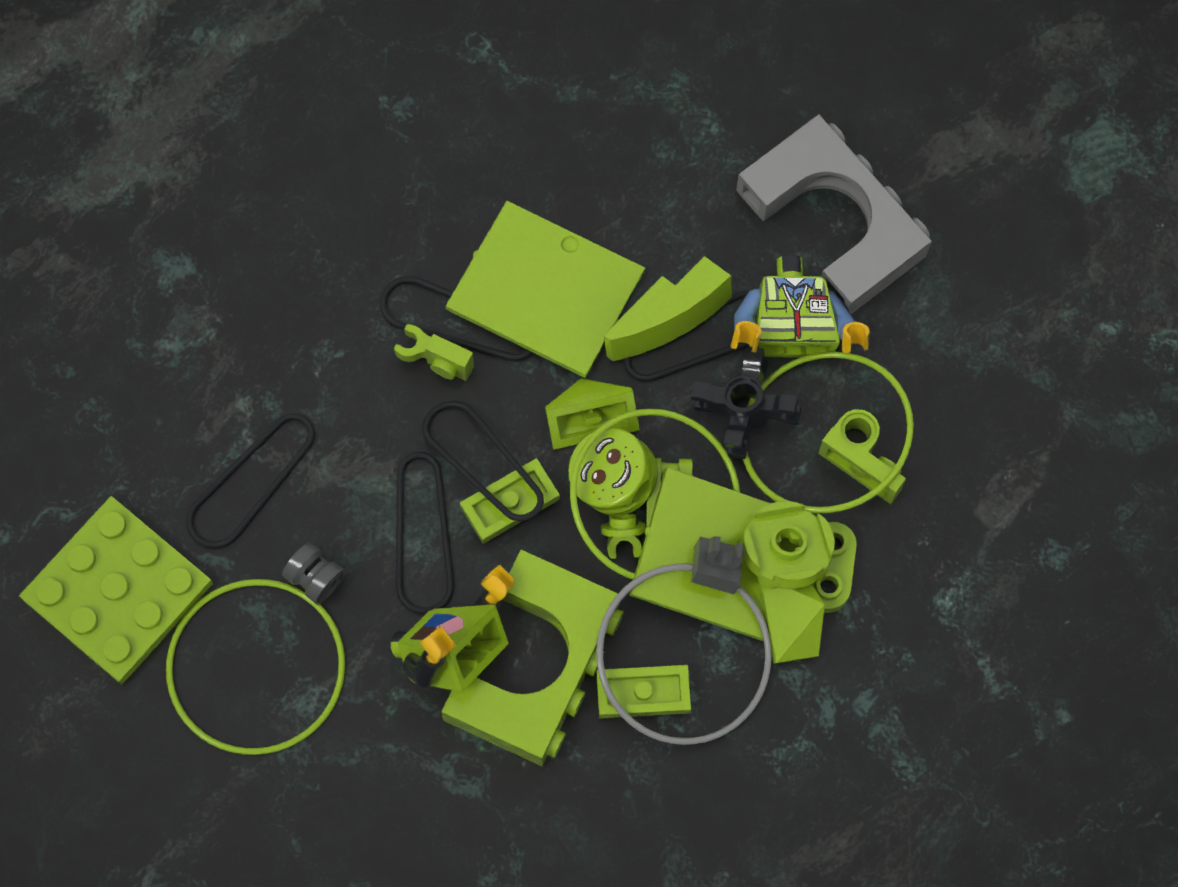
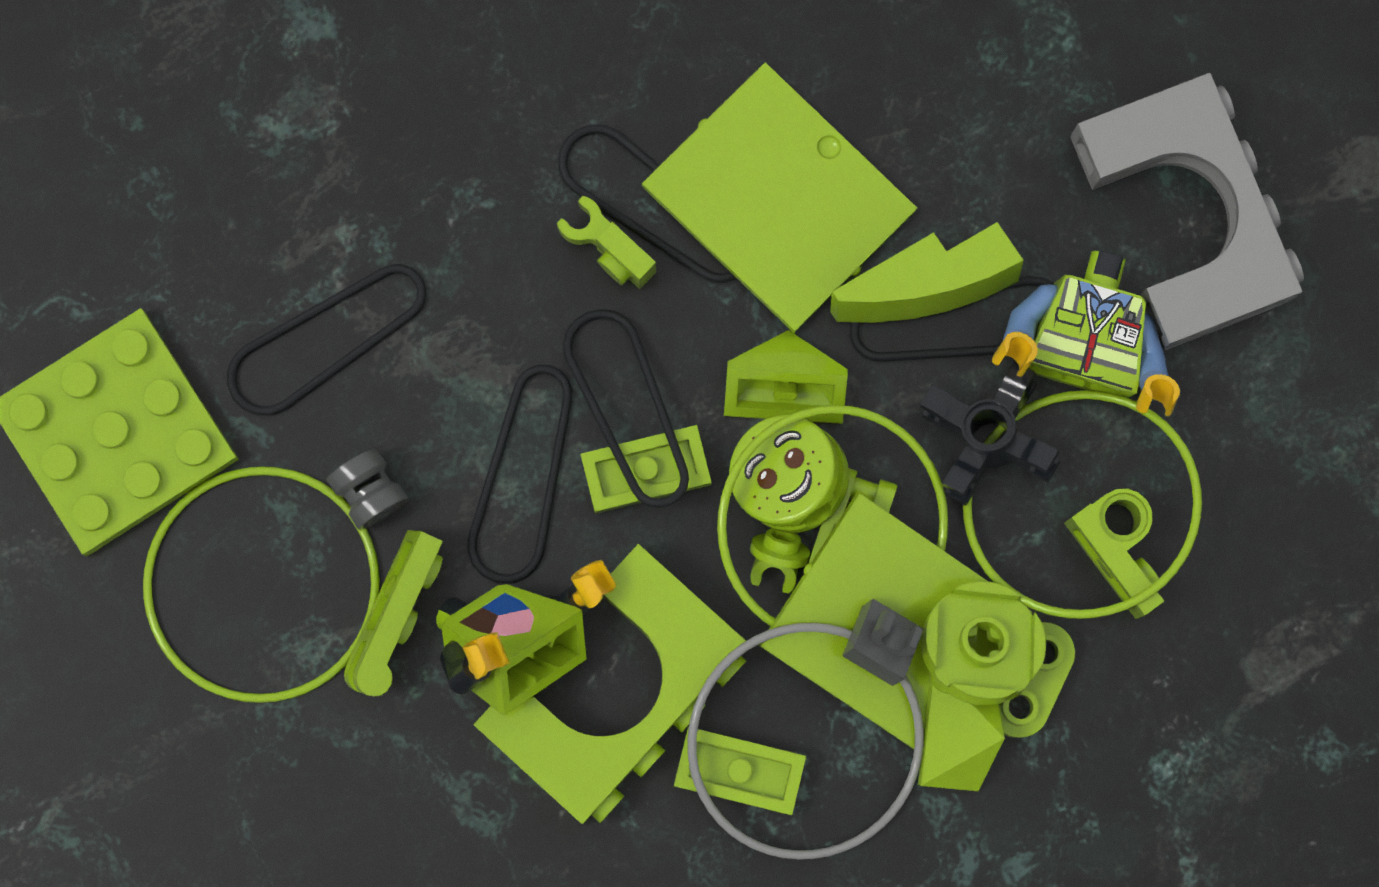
camera: 15 degrees right, 10 degrees up
(358, 655) = (392, 613): none -> lime plate

